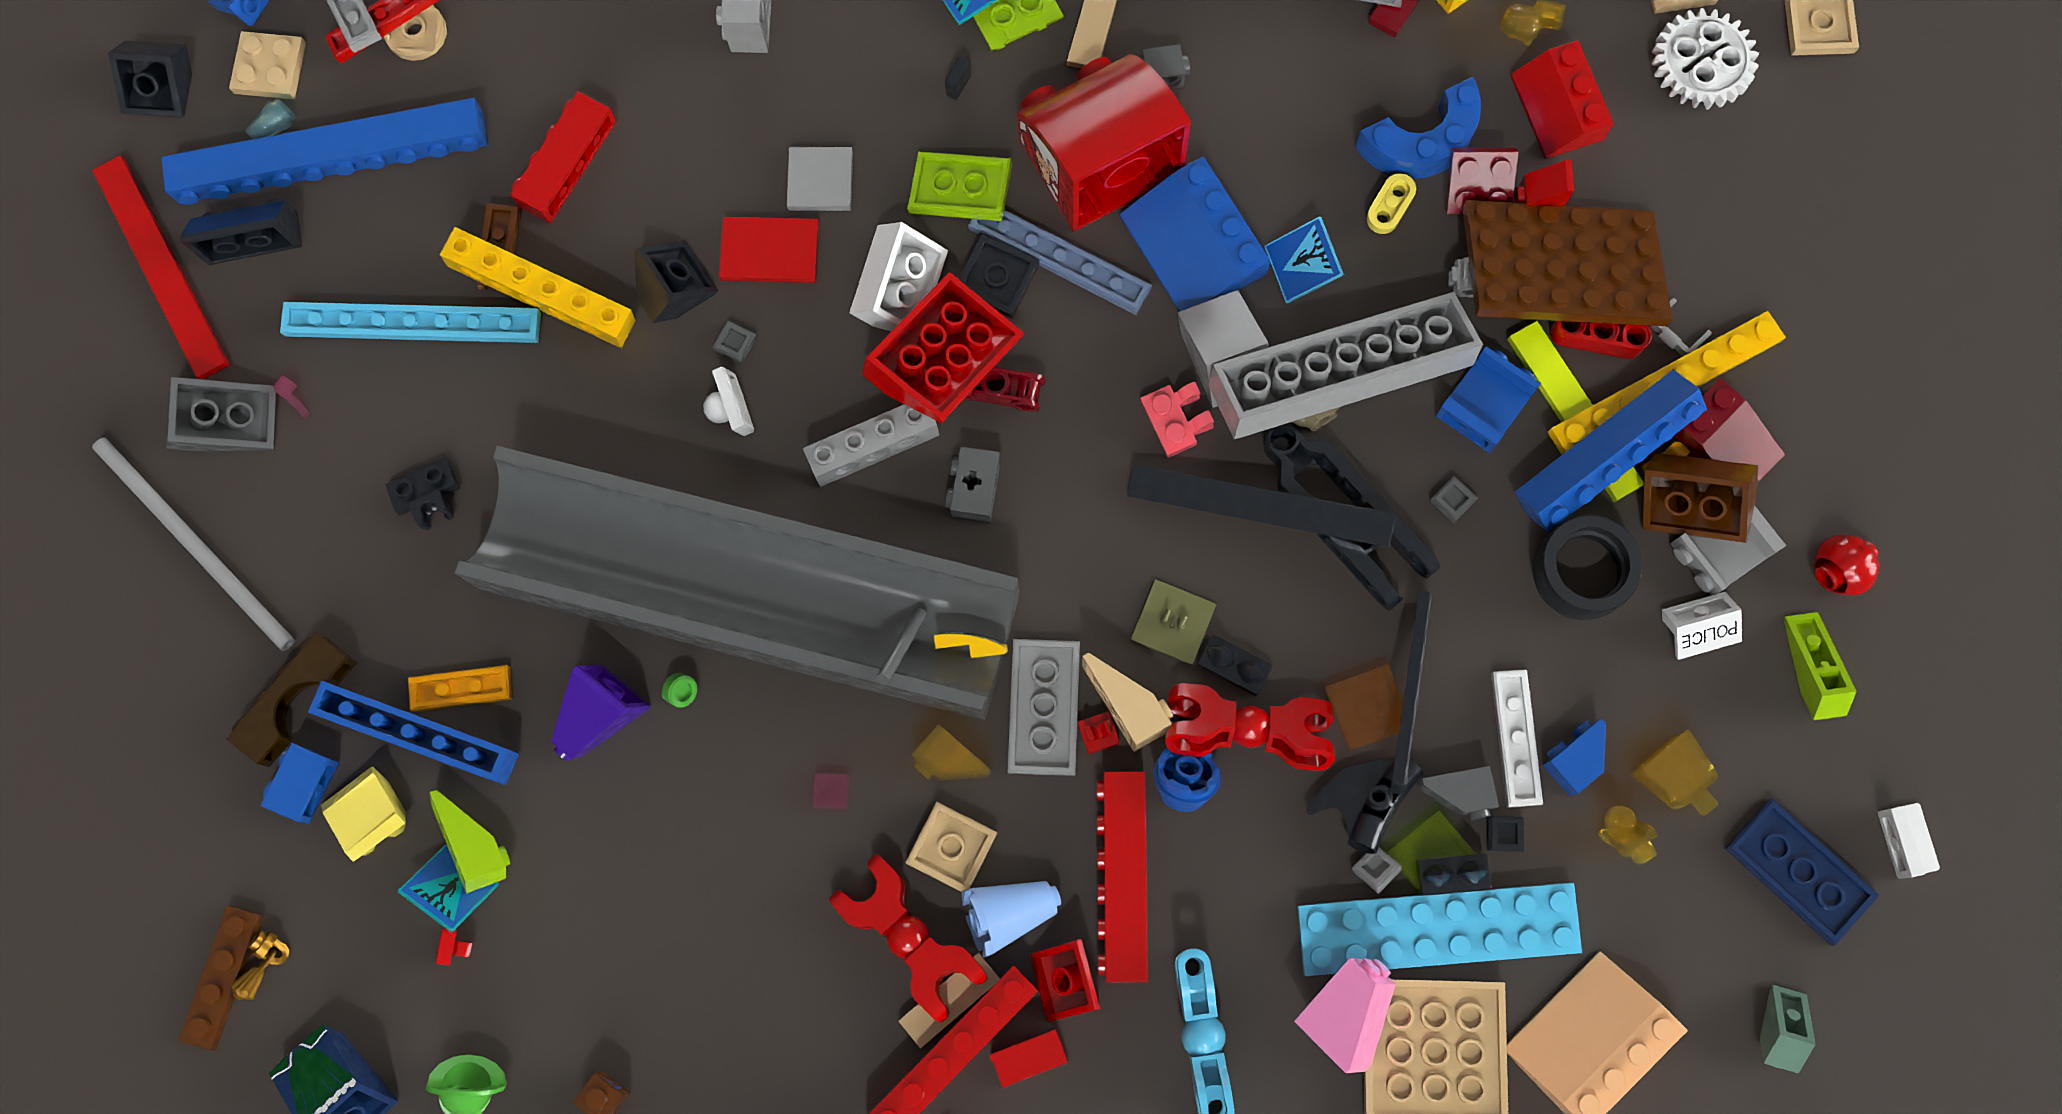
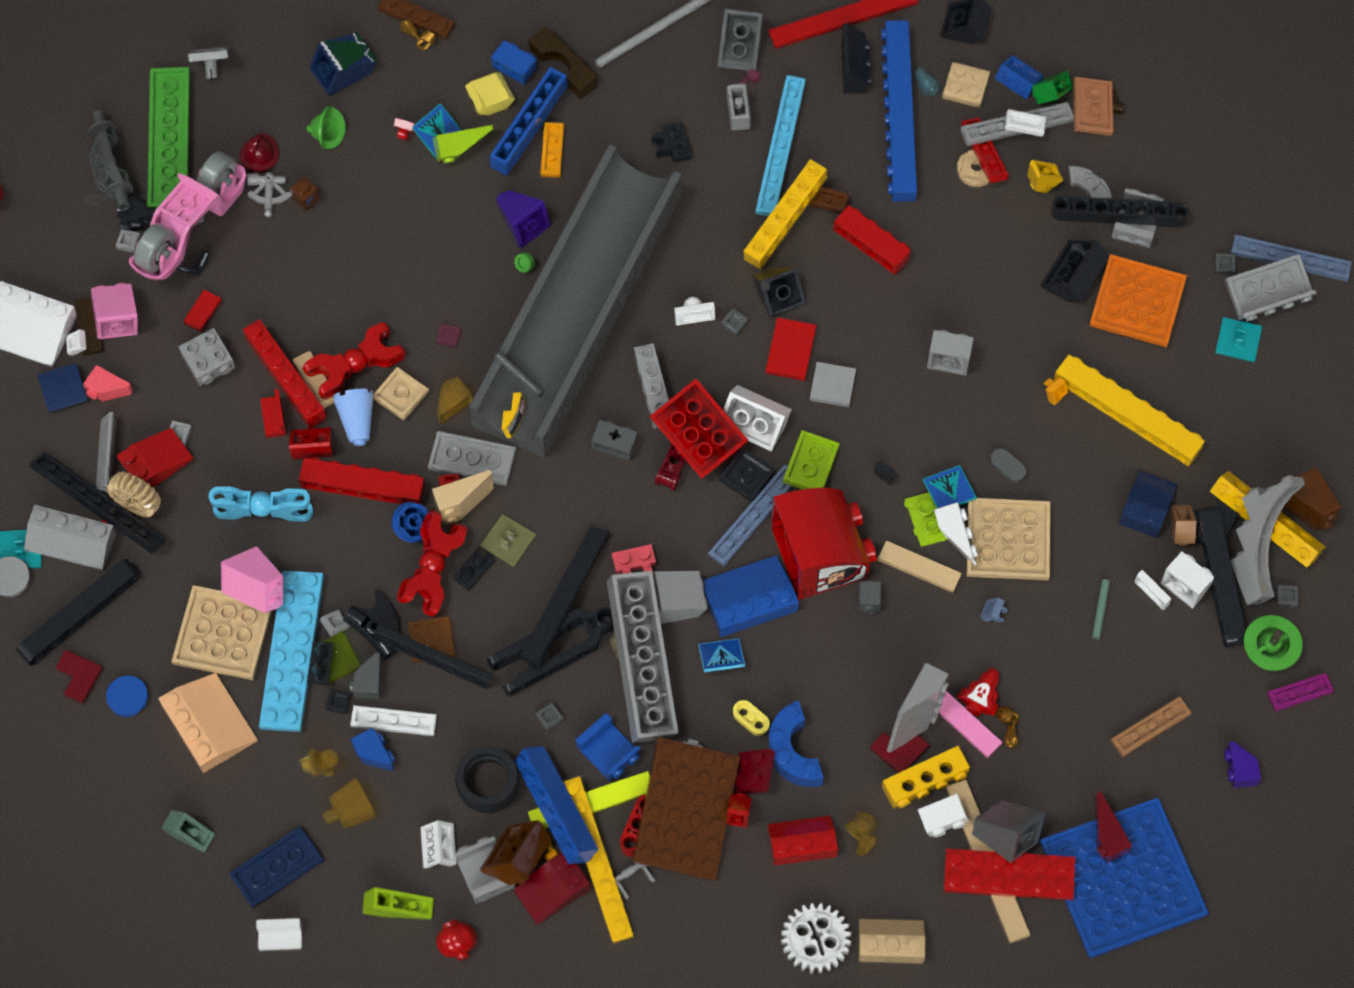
camera: 95 degrees right, 10 degrees down
(348, 395) = (738, 107): none -> light grey brick

